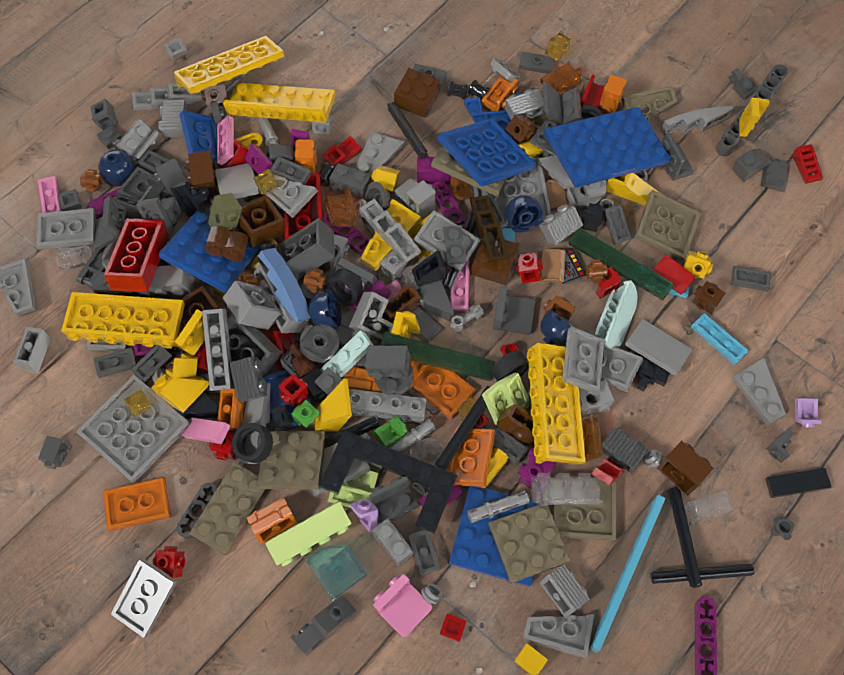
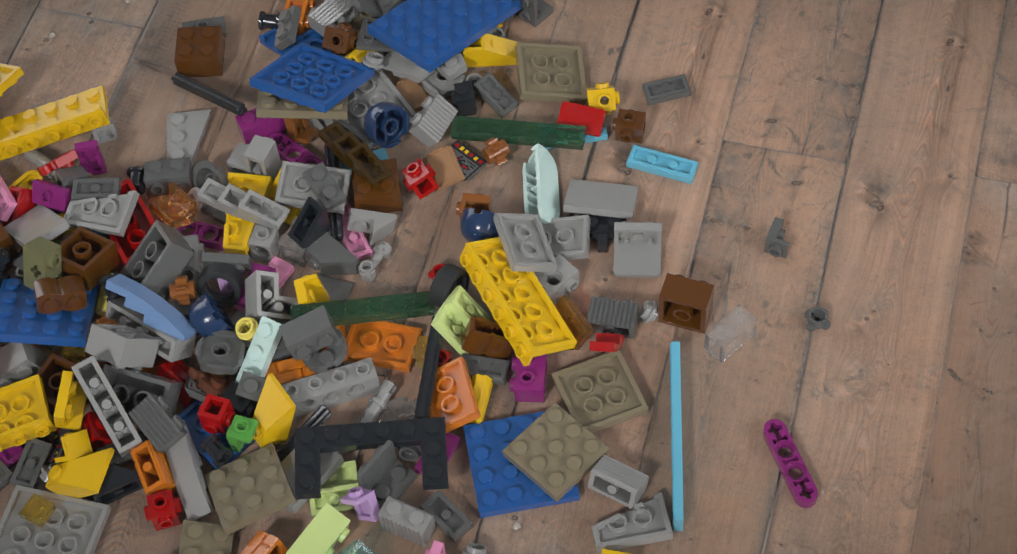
camera: 20 degrees left, 10 degrees down
(206, 430) = (134, 501): bright pink tile -> none
(239, 439) = (179, 482): black tyre -> none
(265, 181) = (73, 210): clear yellow plate -> none
(278, 137) = (63, 161): none -> red plate
(306, 154) = (103, 163): orange brick -> none
(343, 152) = (144, 150): red slope -> none
(345, 333) = (246, 328): none -> light yellow cone
(386, 177) = (211, 152): yellow brick -> none
(390, 432) = (348, 410): bright green bracket -> none
(405, 300) = (295, 267): reddish brown brick -> none
(453, 90) = (242, 35): black bush -> none
(481, 290) = (376, 223): none -> light grey slope
(487, 102) = (287, 27): none -> dark grey plate
(488, 510) = (497, 437): light grey pin -> none
(513, 313) = (424, 233): dark grey bracket -> none
(538, 157) = (374, 60): none -> light grey plate
(565, 489) = (569, 377): clear slope -> none
(609, 284) = (515, 159): red bracket -> none
(667, 403) = (637, 249): none -> light grey bracket
(685, 538) = (719, 372): black axle -> none
(705, 573) = (755, 401): black axle -> none
(760, 391) = (730, 197): light grey wing -> none
(798, 483) = (812, 269): black tile -> none
(807, 411) = (787, 194): lavender bracket -> none

